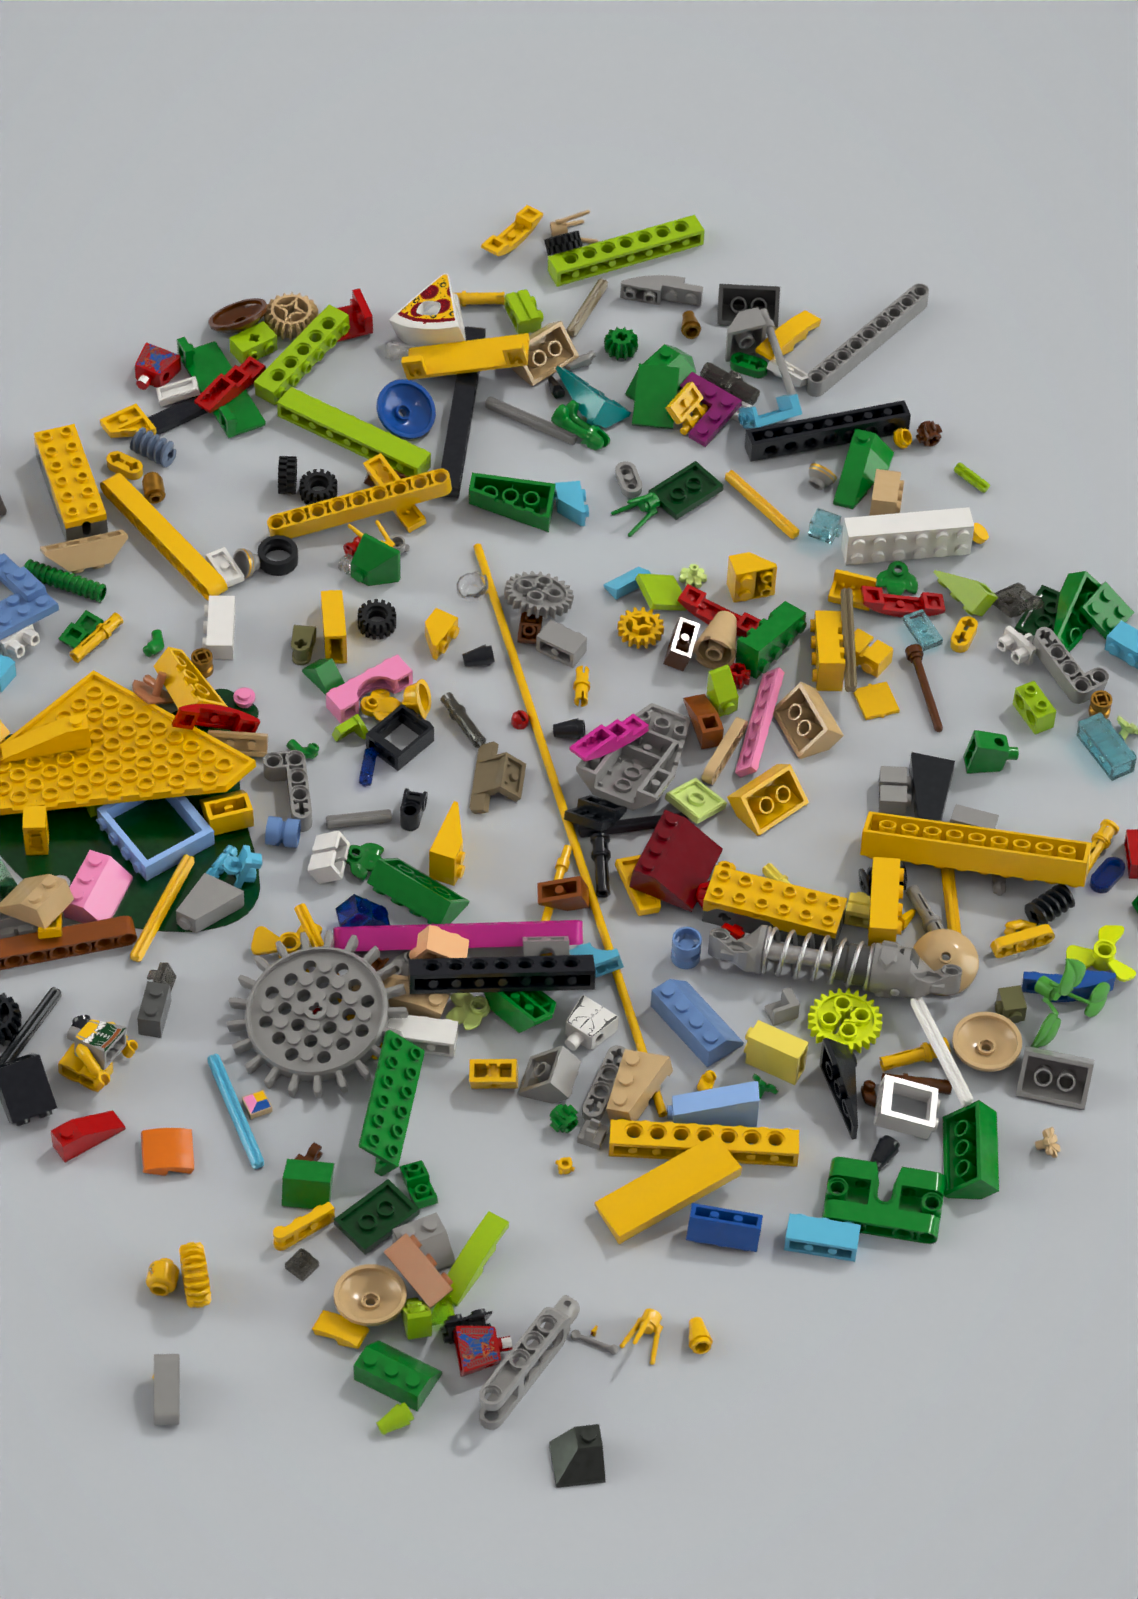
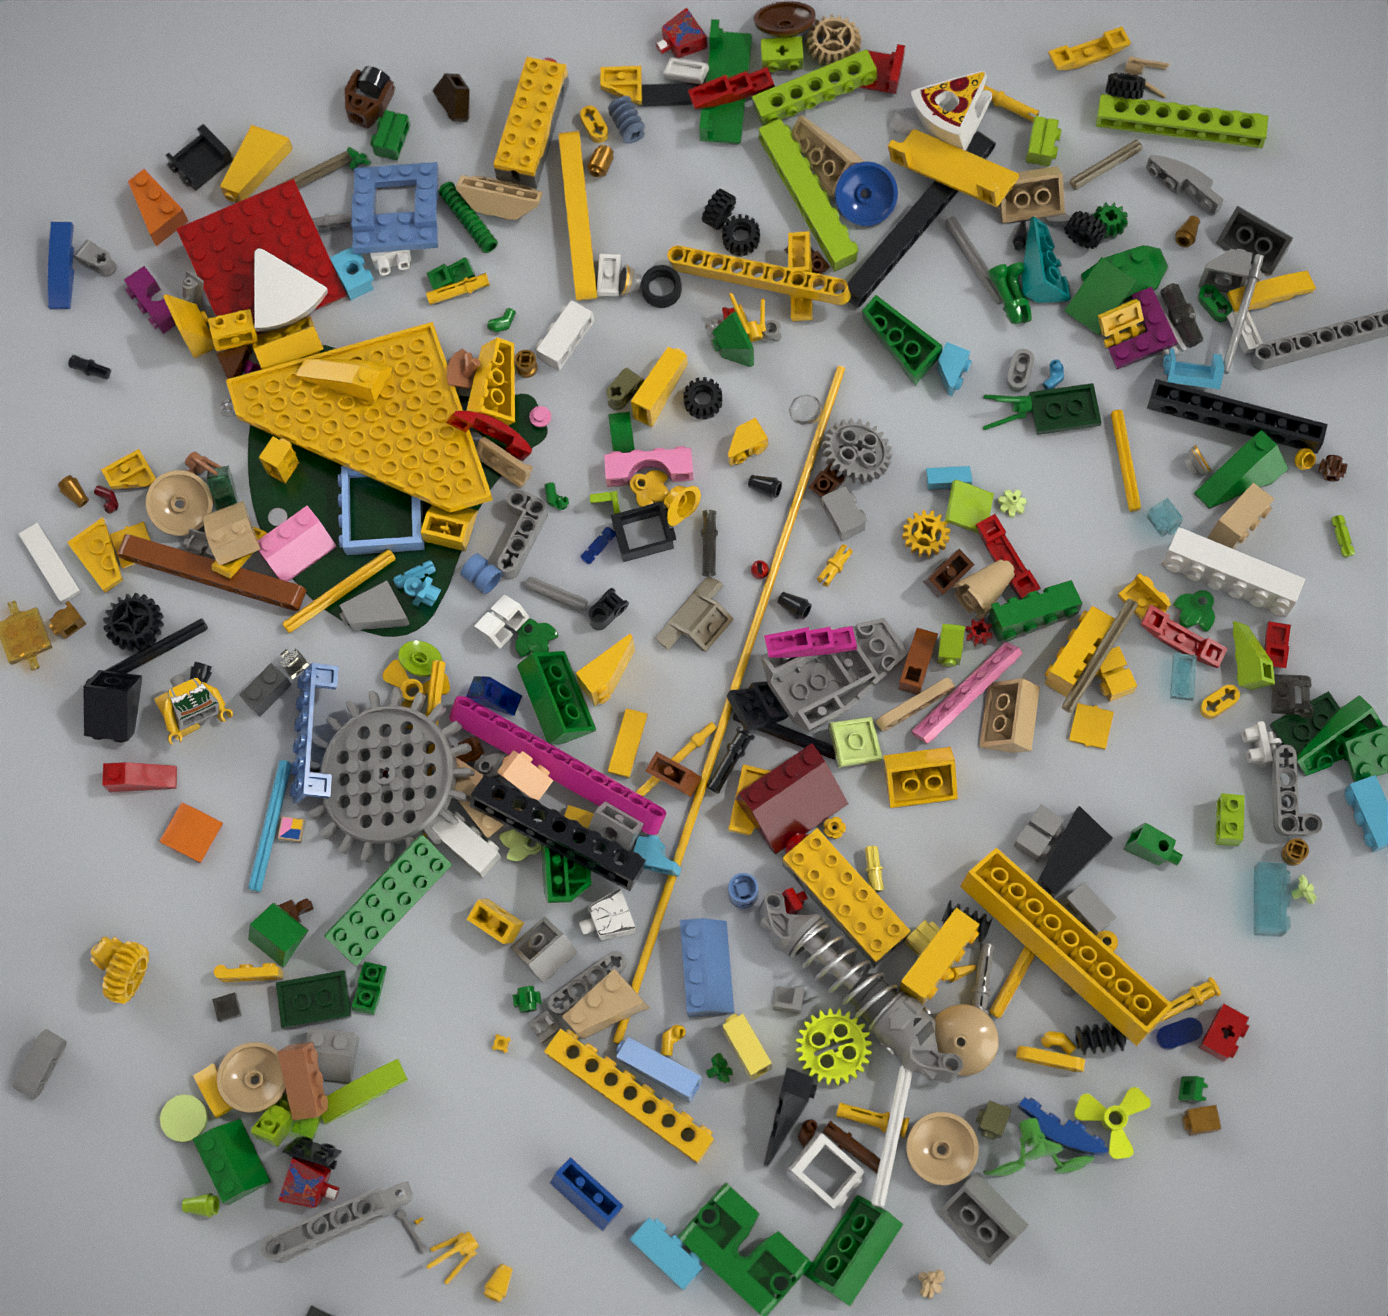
camera: 40 degrees right, 20 degrees up
(219, 1021) = (307, 782): none -> medium blue bracket
(276, 920) = (418, 657): none -> lime dish
(328, 1366) = (183, 1118): none -> yellowish green tile
(347, 397) = (825, 153): none -> tan wedge
(504, 895) = (627, 743): none -> yellow tile
(609, 364) = (1085, 229): none -> black tyre
(659, 470) = (1056, 374): none -> dark azure arm
(668, 1188) = (564, 1126): yellow arch -> none
(750, 577) = (1056, 537): yellow slope -> none
(884, 1151) = (778, 1201): black cone -> none
(915, 655) = (1157, 700): reddish brown piece -> none
(974, 569) = (1277, 643): none -> red slope
(980, 534) = (1306, 601): yellow tile -> none

